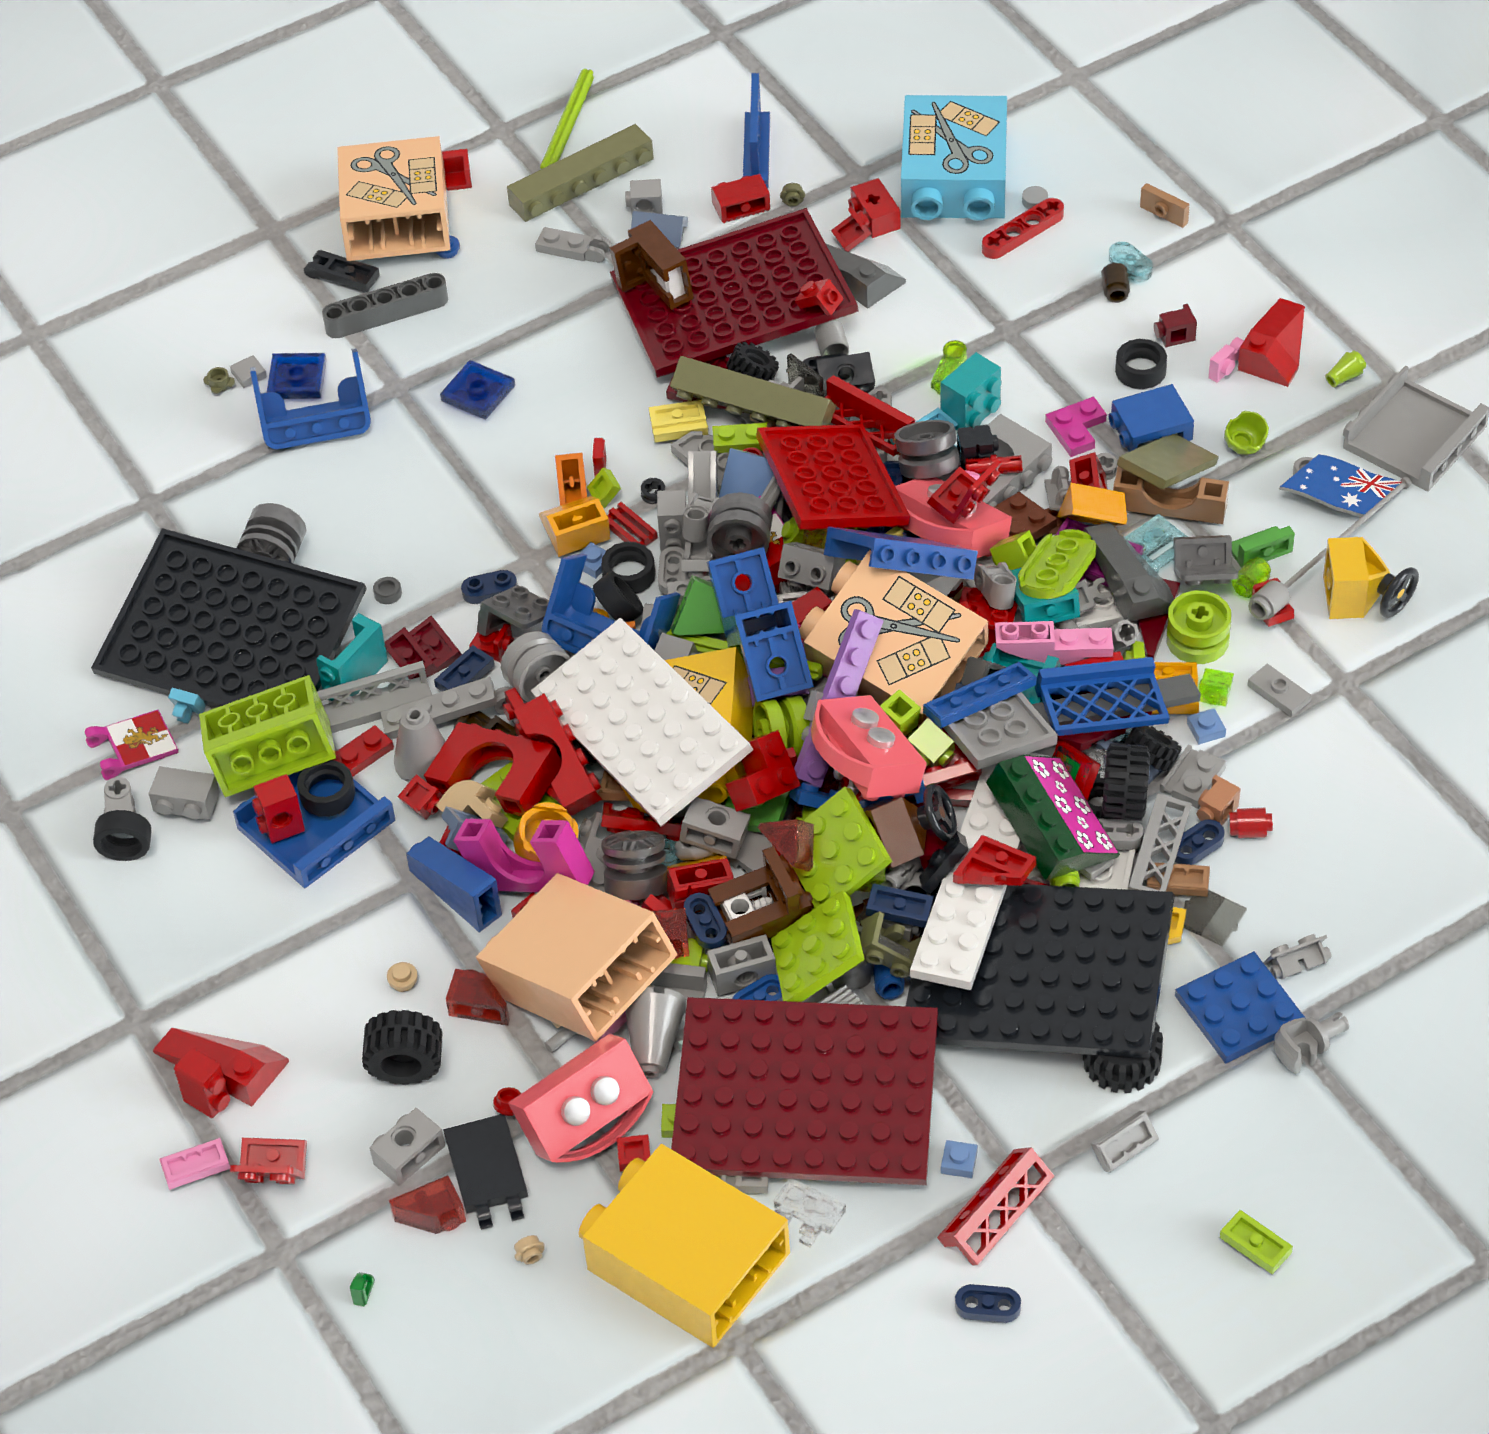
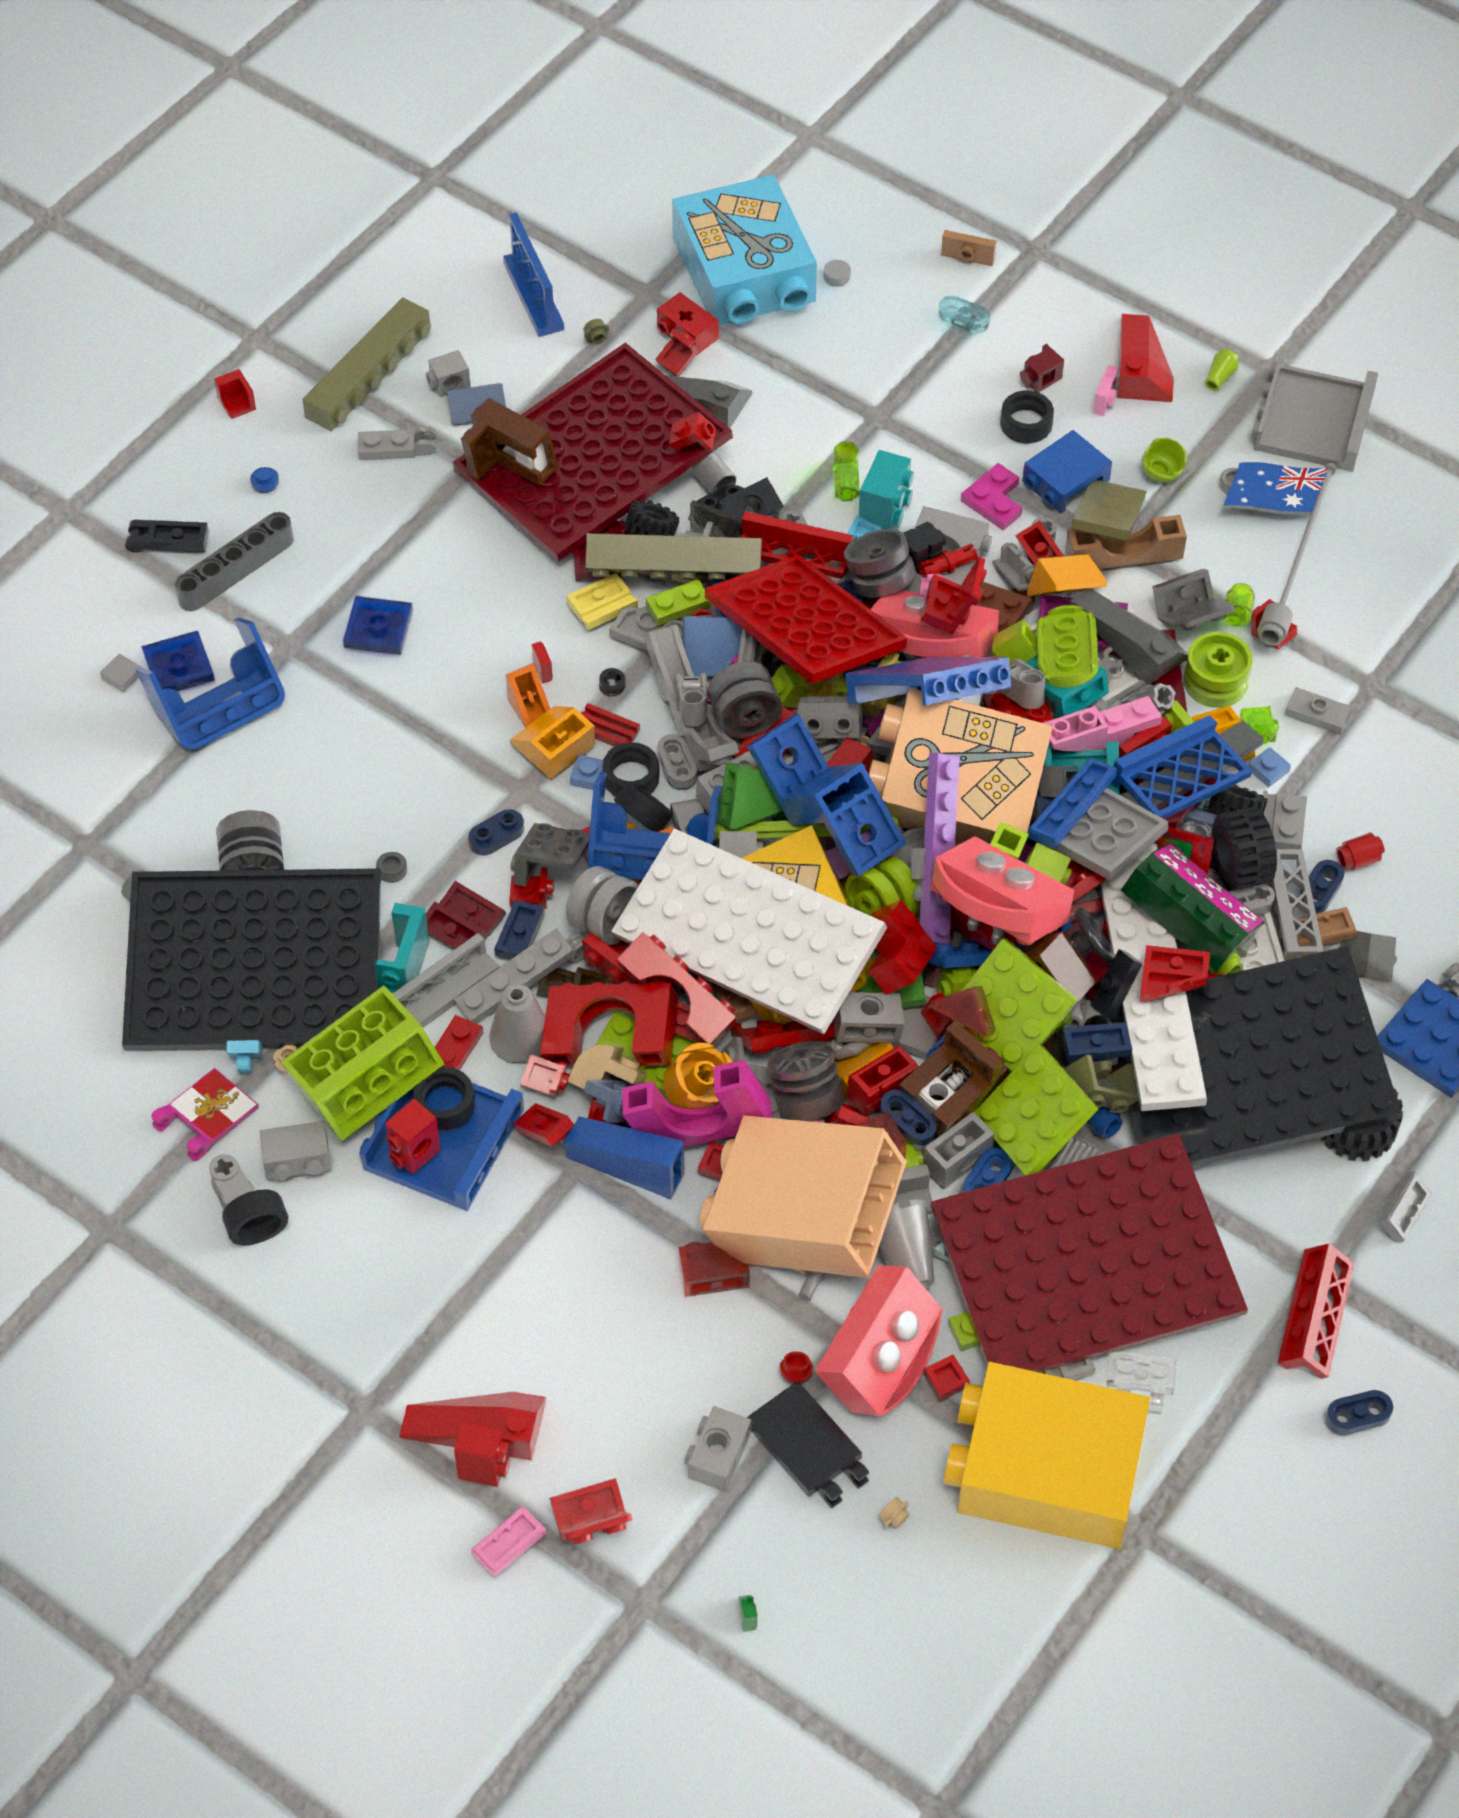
camera: 25 degrees left, 5 degrees up
(218, 379) = (96, 685): olive plate -> none
(393, 198) = (191, 443): light nougat brick -> none
(398, 835) = (543, 1124): none -> red plate
(402, 976) = (619, 1271): tan plate -> none
(402, 1047) = (669, 1347): black tyre -> none
(430, 1207) = (776, 1504): clear red slope -> none
(568, 118) = (322, 311): lime axle -> none
(604, 486) = (563, 691): lime plate -> none
(670, 518) = (657, 708): light grey brick -> none
(740, 198) = (546, 348): red brick -> none
(959, 1159) = (1257, 1276): medium blue plate -> none
(1046, 213) = (837, 305): red beam -> none
(1115, 282) = (960, 339): dark brown brick -> none
(1154, 536) = (1127, 588): clear light blue plate -> none
(1218, 801) = (1321, 838): nougat brick -> none
(1264, 544) = (1233, 568): bright green panel -> none
(1357, 577) = (1337, 577): yellow piece -> none

